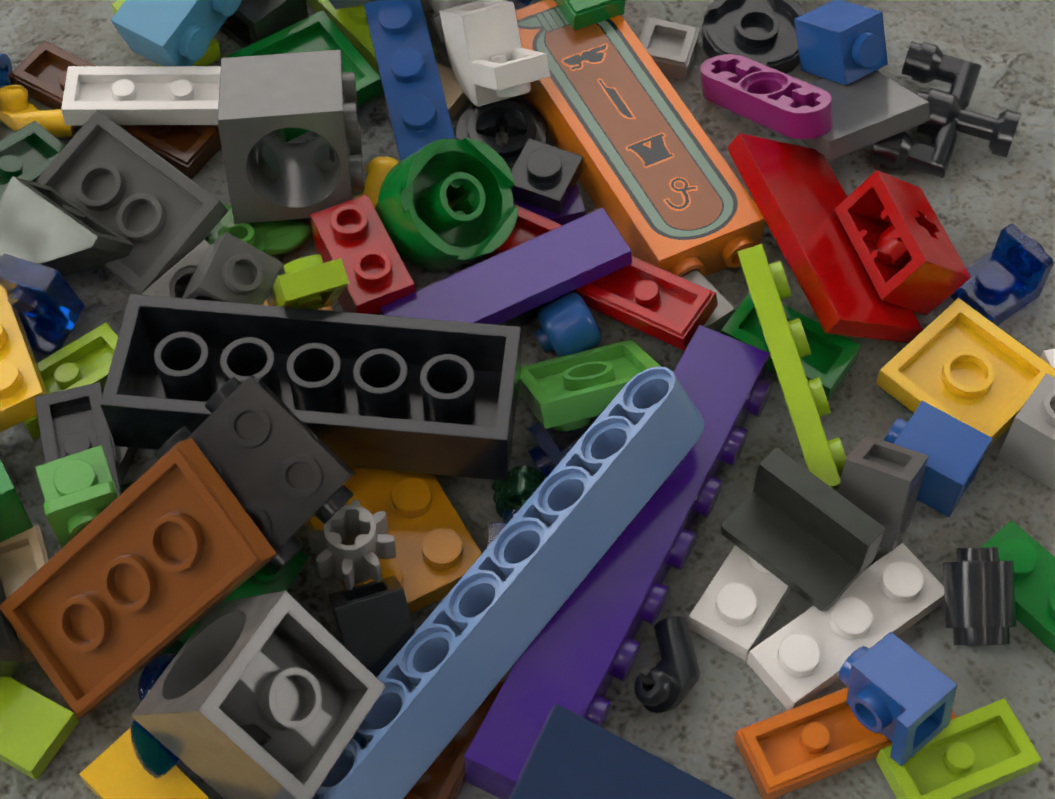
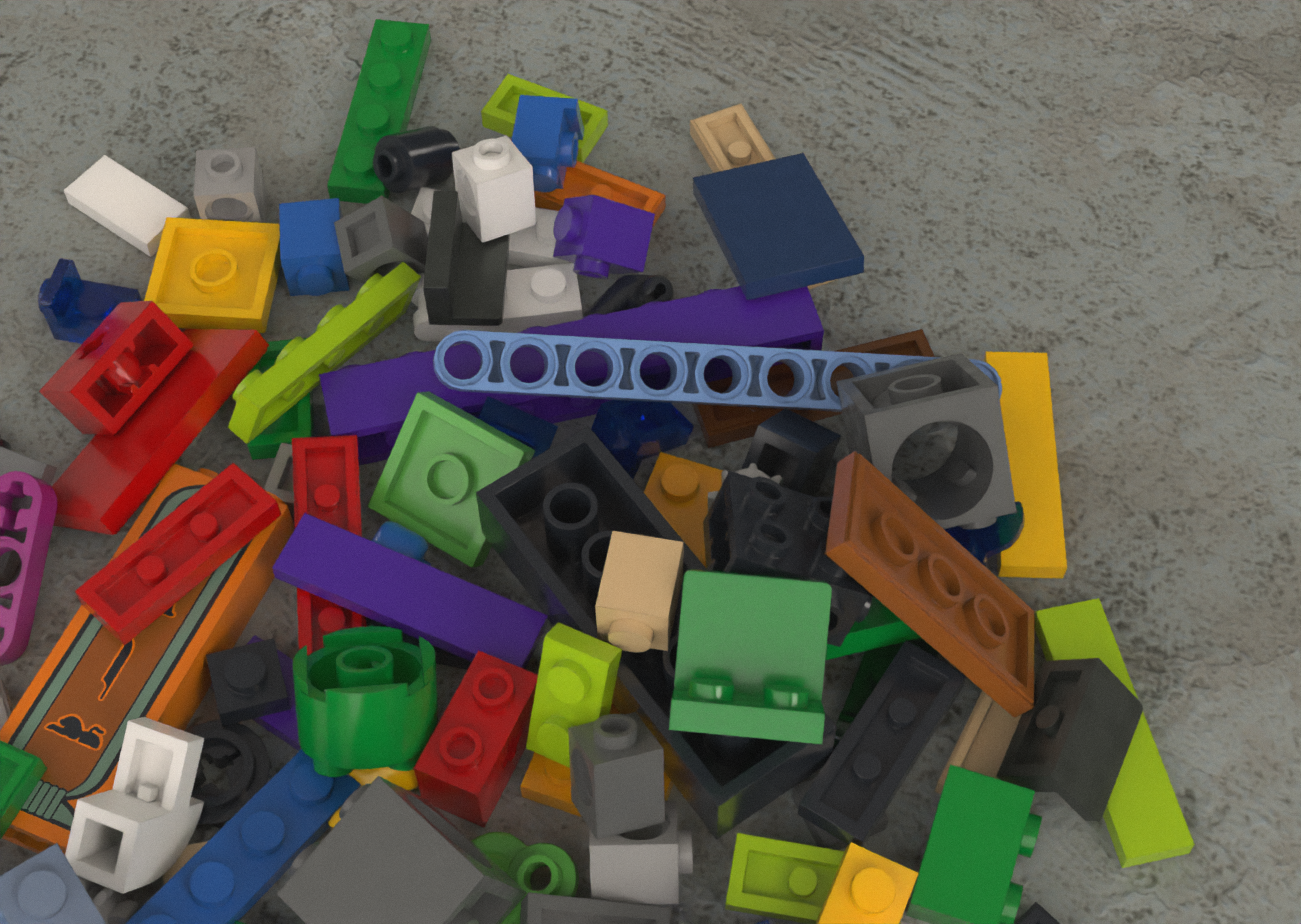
camera: 130 degrees left, 0 degrees up
(76, 491) = (910, 694): bright green bracket -> none
(168, 338) = (751, 656): none -> green bracket
(313, 337) = (639, 592): none -> tan brick
(666, 163) = (178, 553): none -> red plate
(741, 665) = (602, 236): none -> dark purple brick
(858, 591) = (494, 188): none -> white brick

